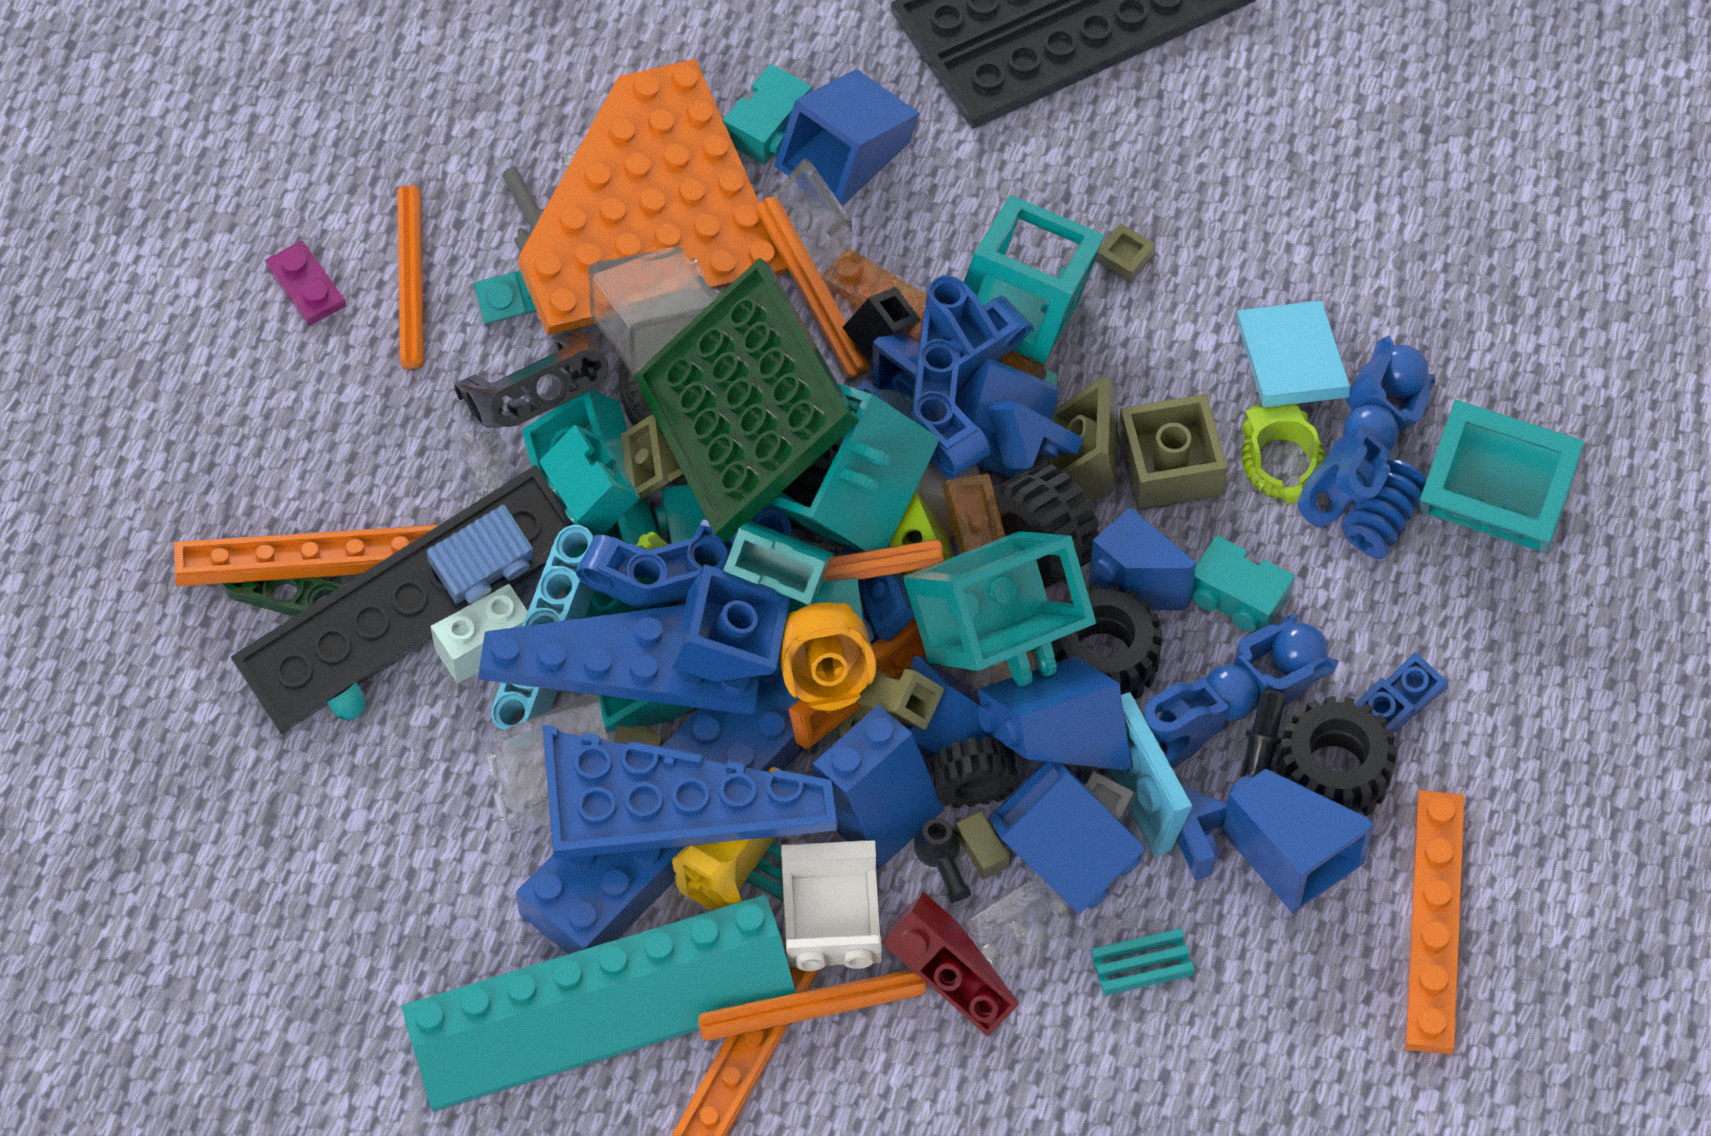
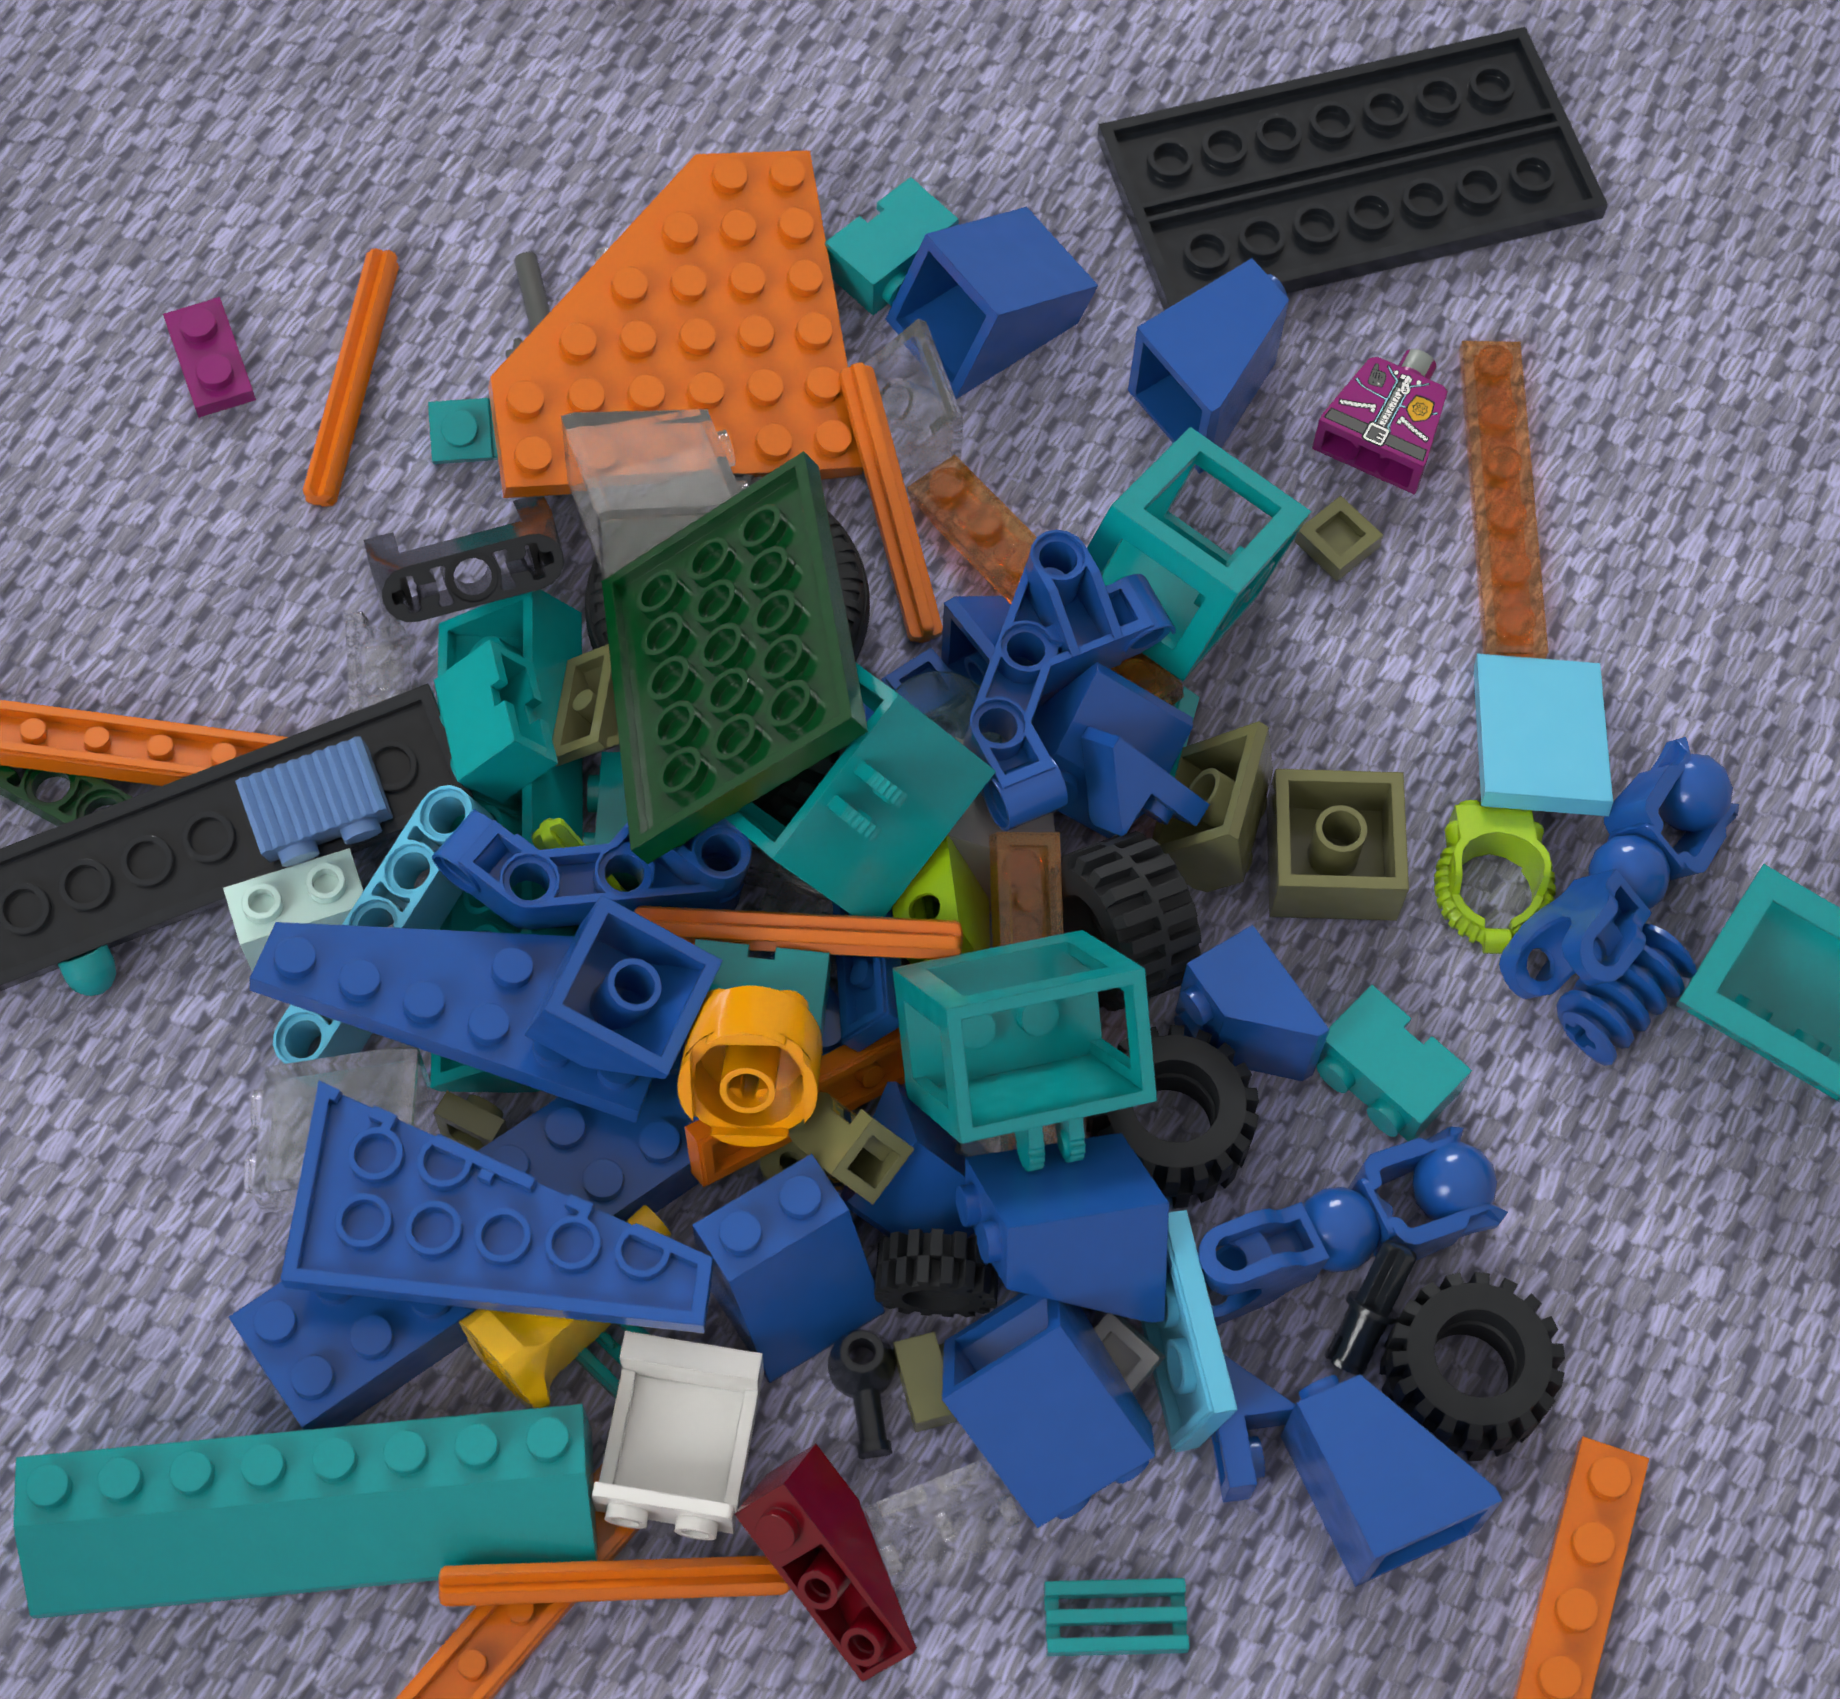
camera: 10 degrees right, 5 degrees up
(778, 562) = (713, 911): teal brick -> none
(880, 316) = (969, 566): black brick -> none
(1008, 145) = (1209, 354): none -> blue slope
(1139, 166) = (1385, 419): none -> magenta torso
(1231, 204) = (1502, 500): none -> clear orange plate
(1404, 692) = (1590, 1280): blue slope -> none

